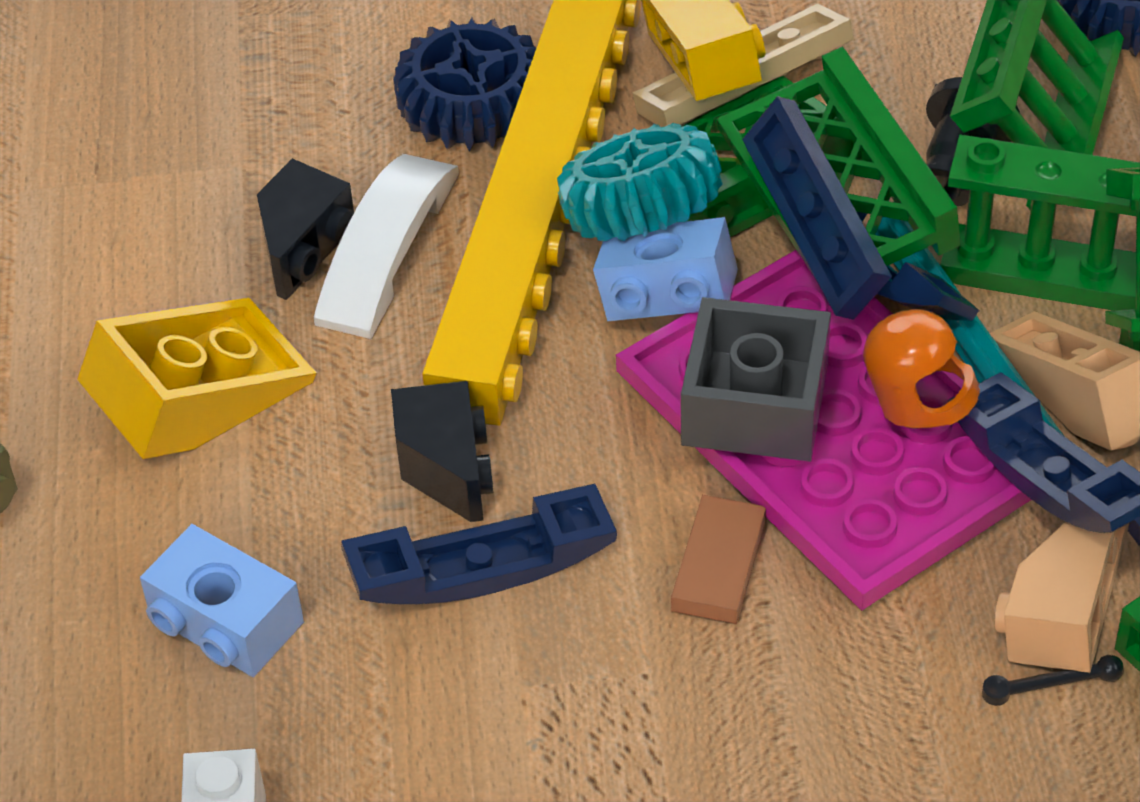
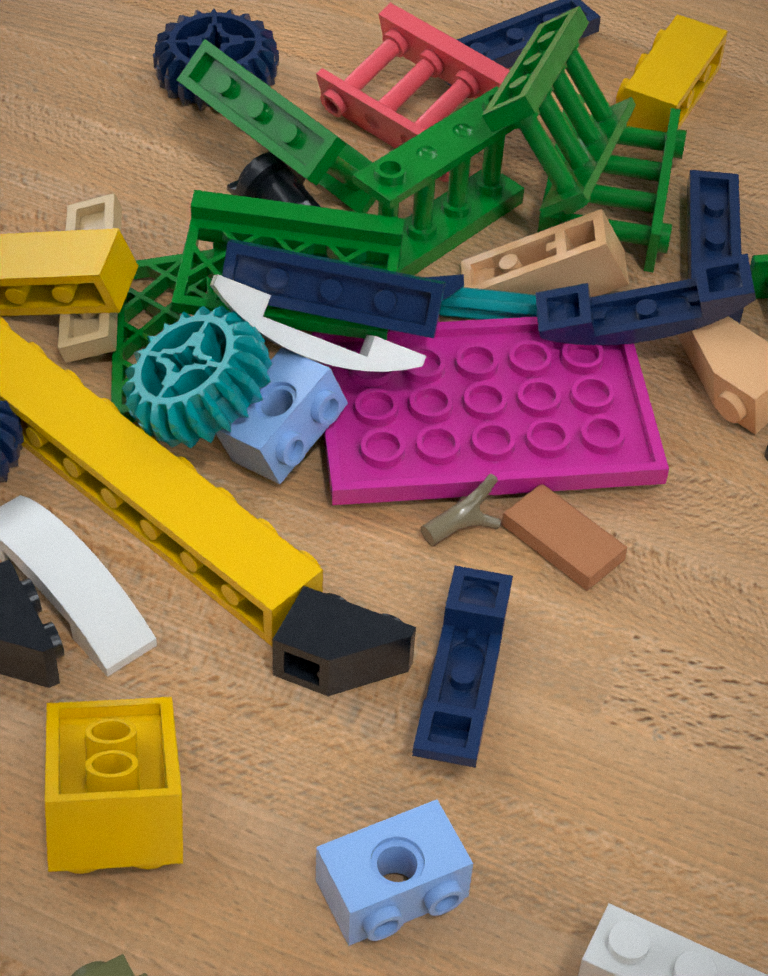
camera: 65 degrees left, 0 degrees up
(676, 466) = (462, 514): none -> dark tan bar
(727, 163) = (375, 354): none -> white slope
(755, 379) = (458, 410): dark grey brick -> none
(902, 353) = (513, 325): orange helmet -> none

